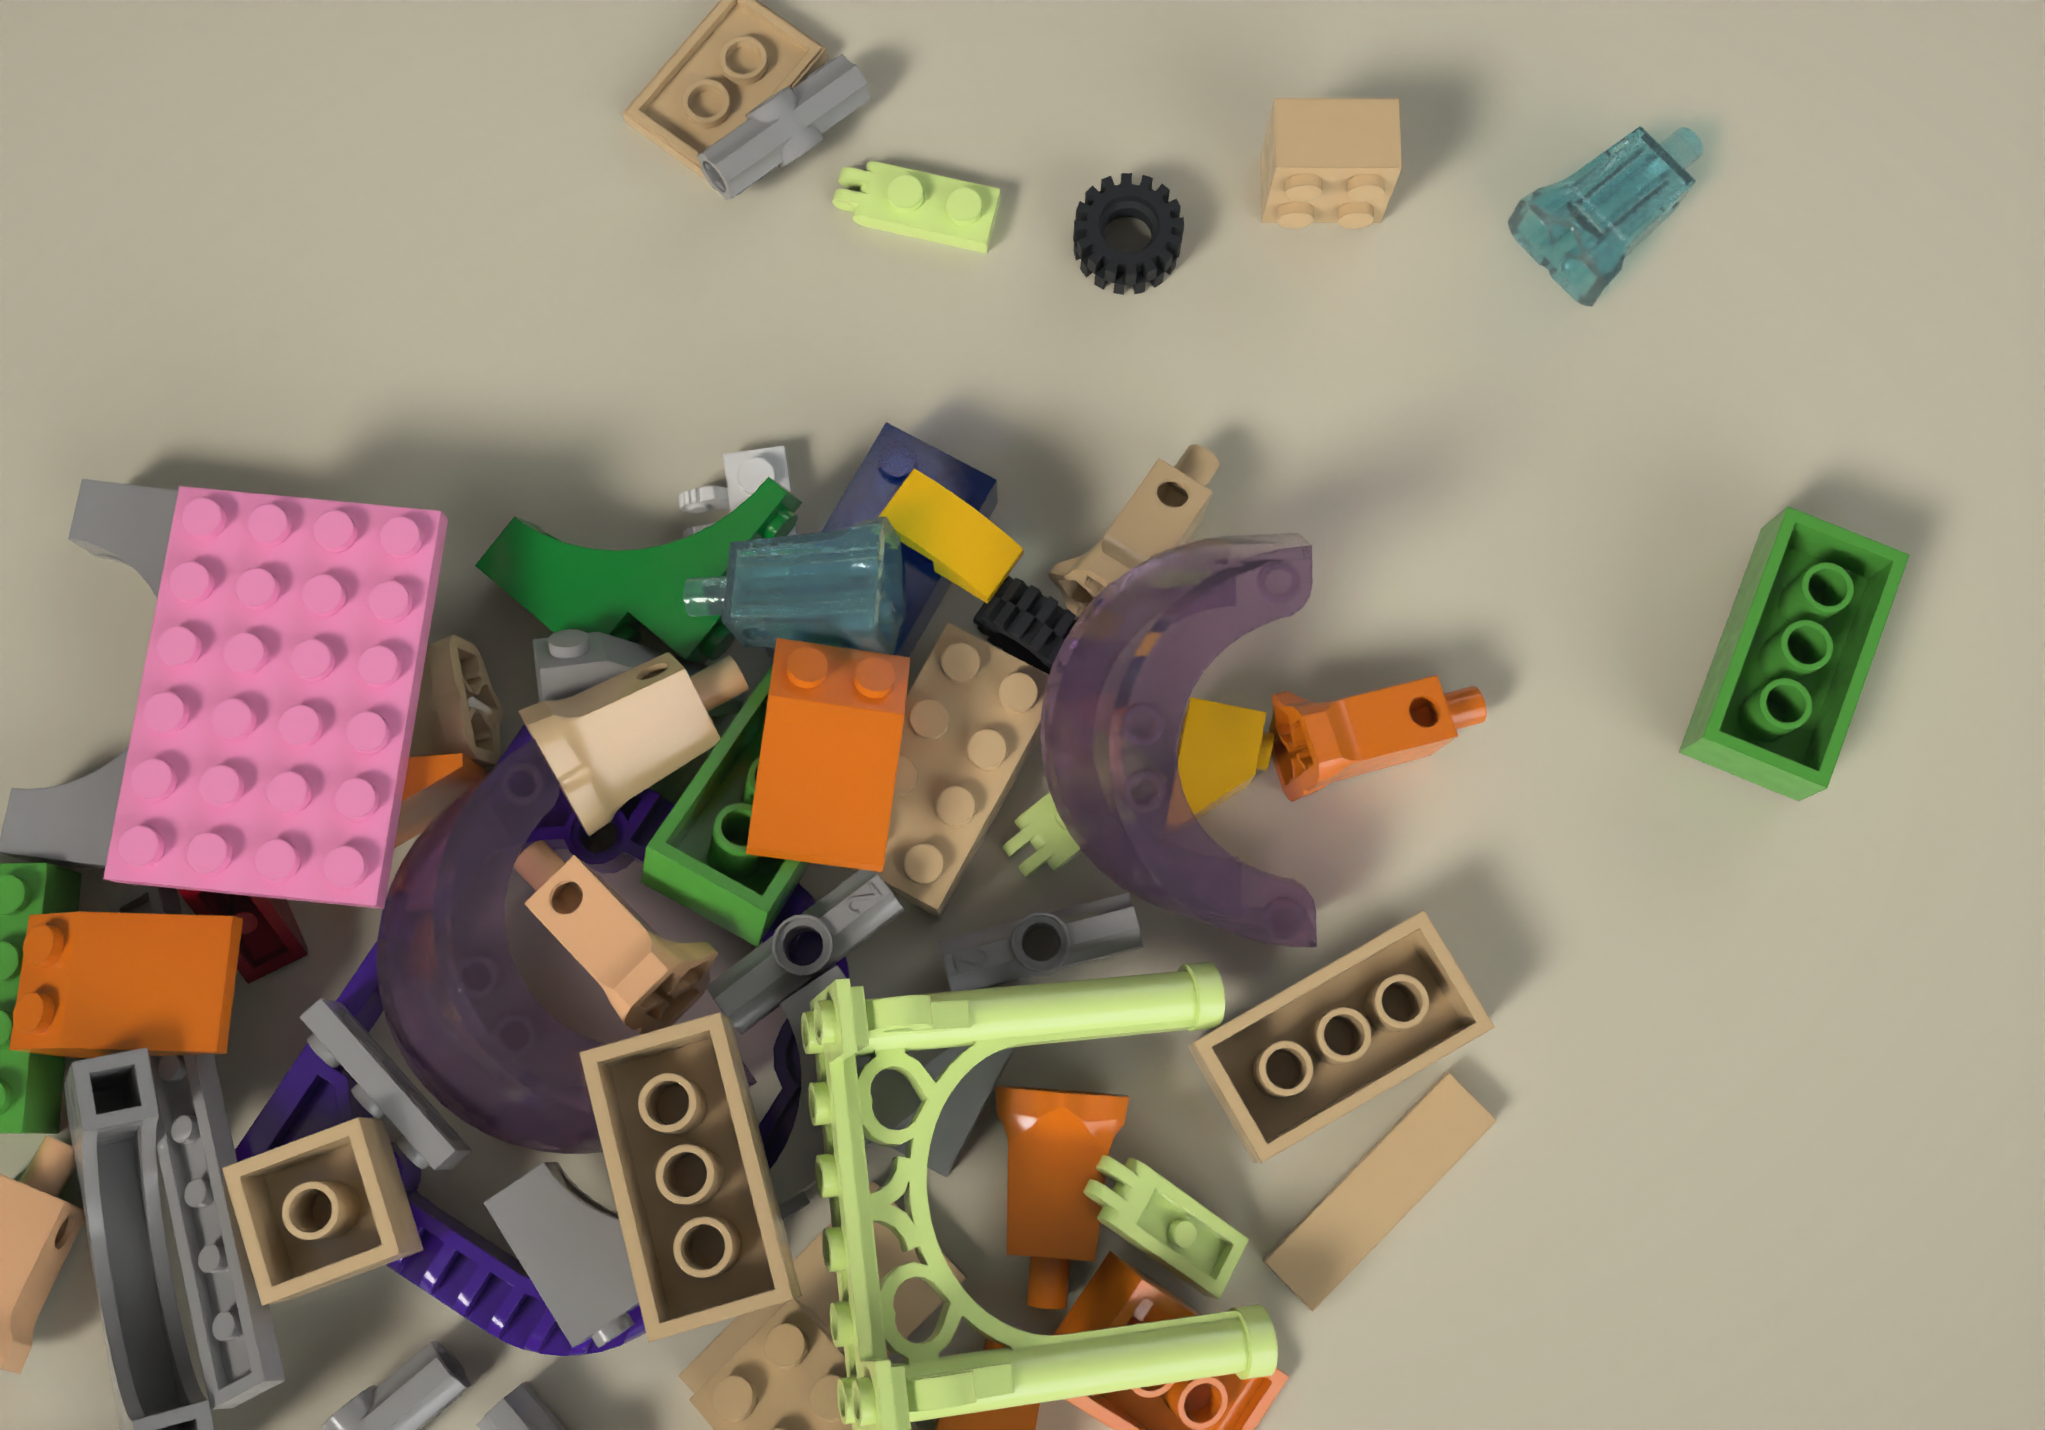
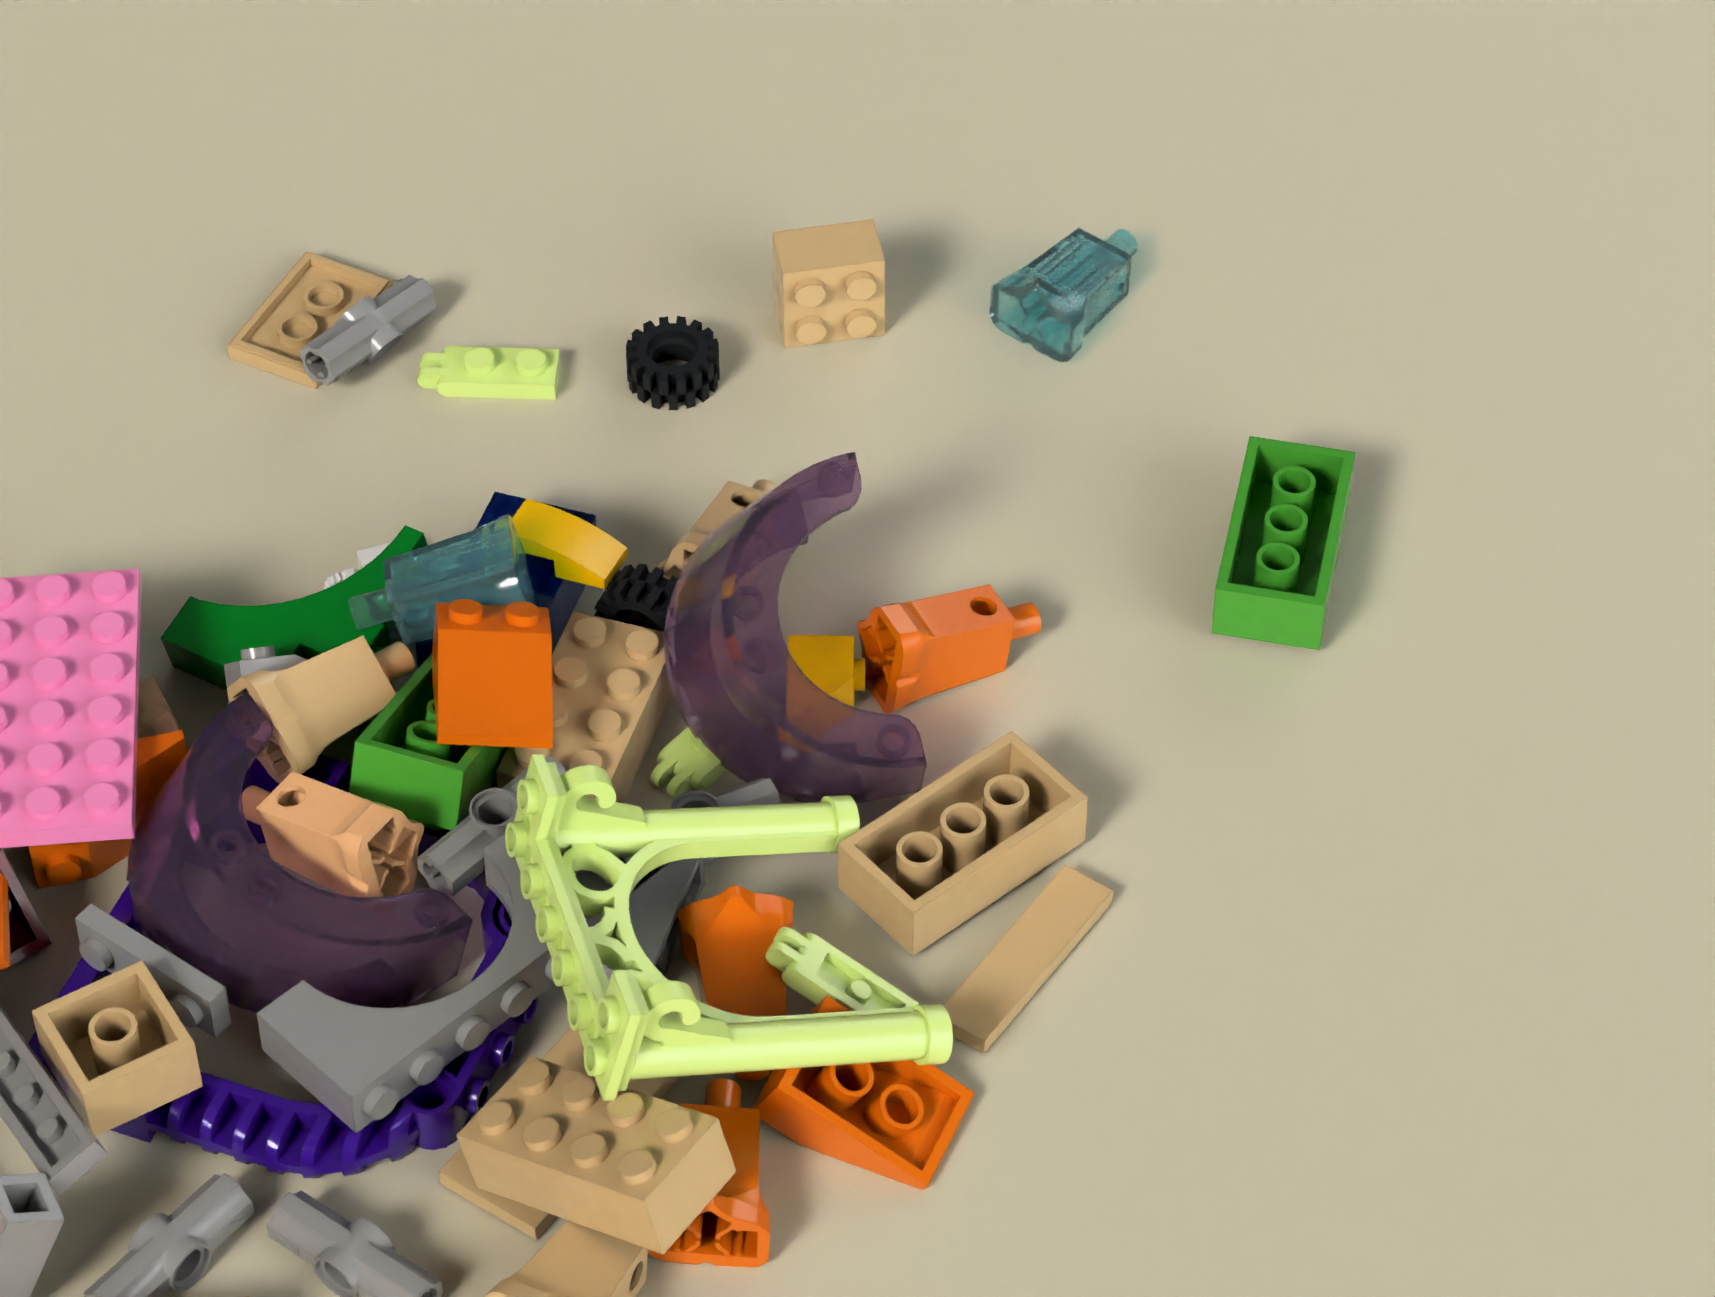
camera: 10 degrees left, 30 degrees down
(689, 1176) = (435, 940): tan brick -> none

